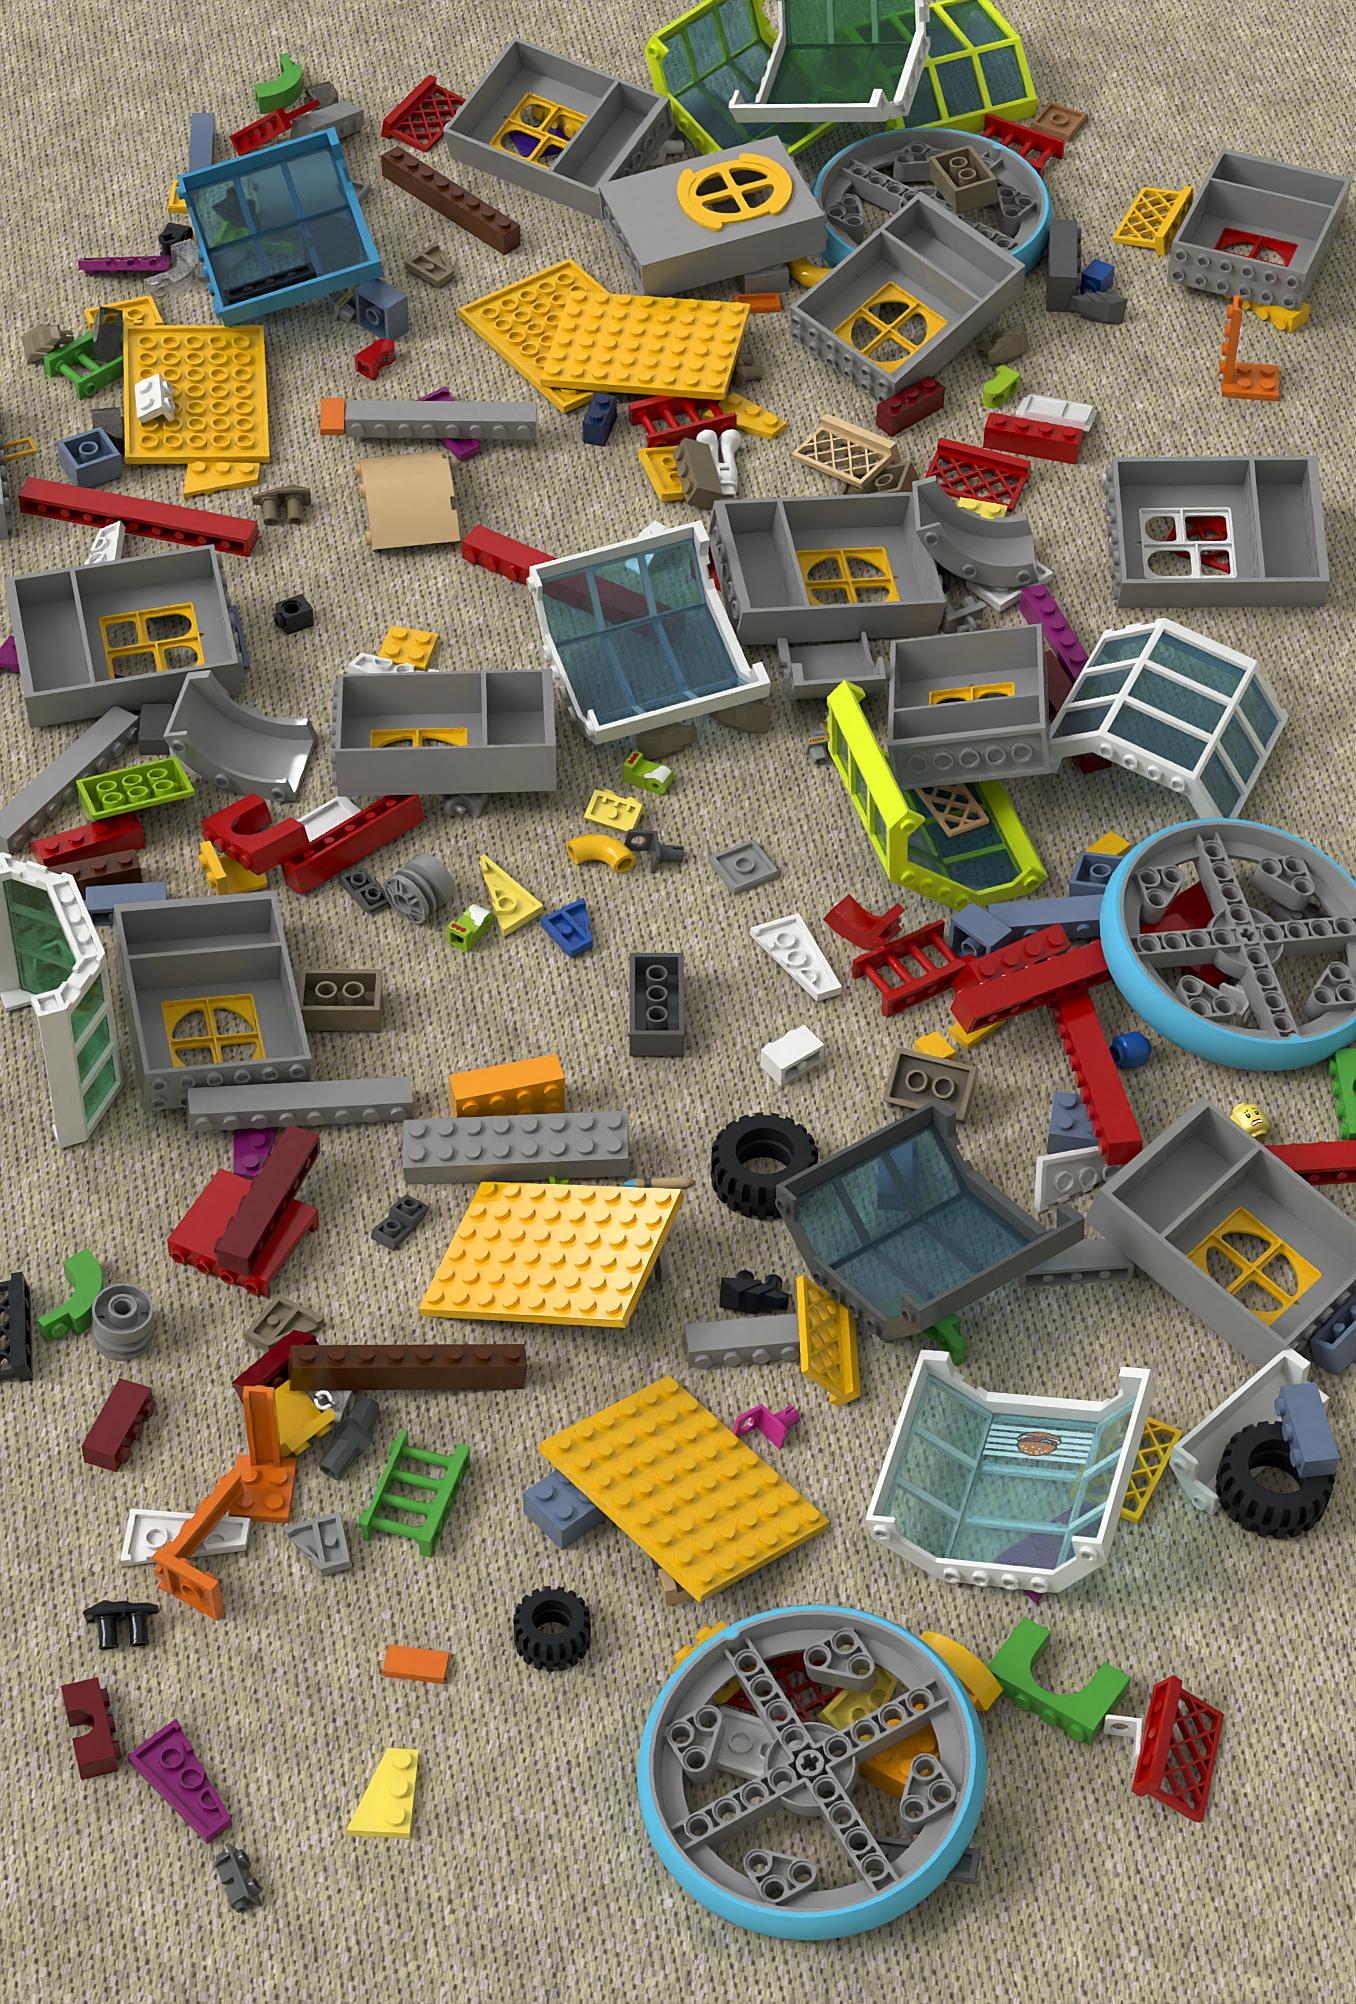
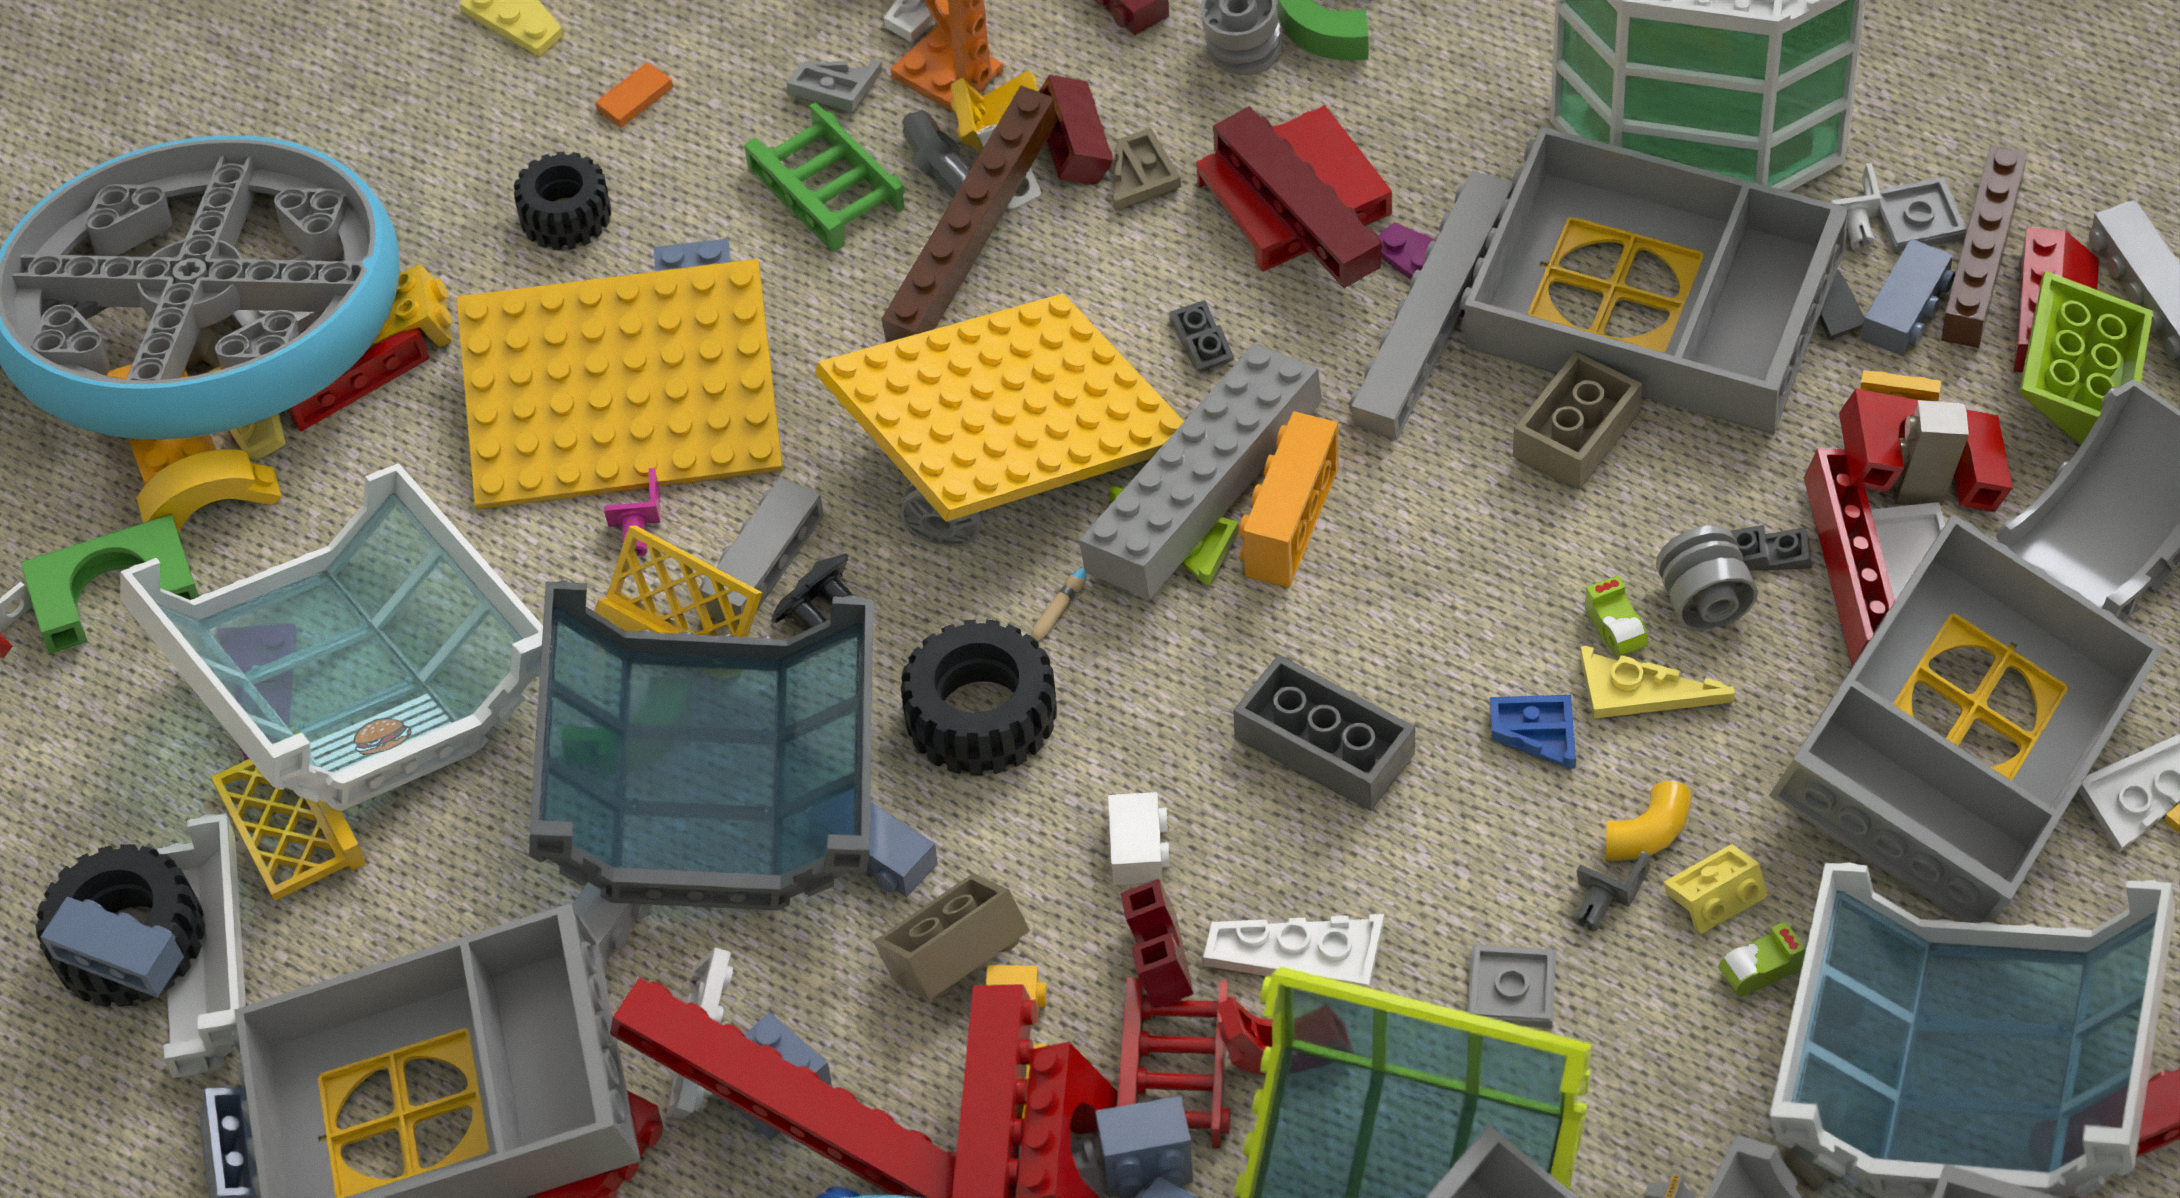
camera: 130 degrees right, 5 degrees up
(260, 807) = (1931, 452): none -> dark tan brick
(868, 988) = (1159, 946): none -> dark red arch

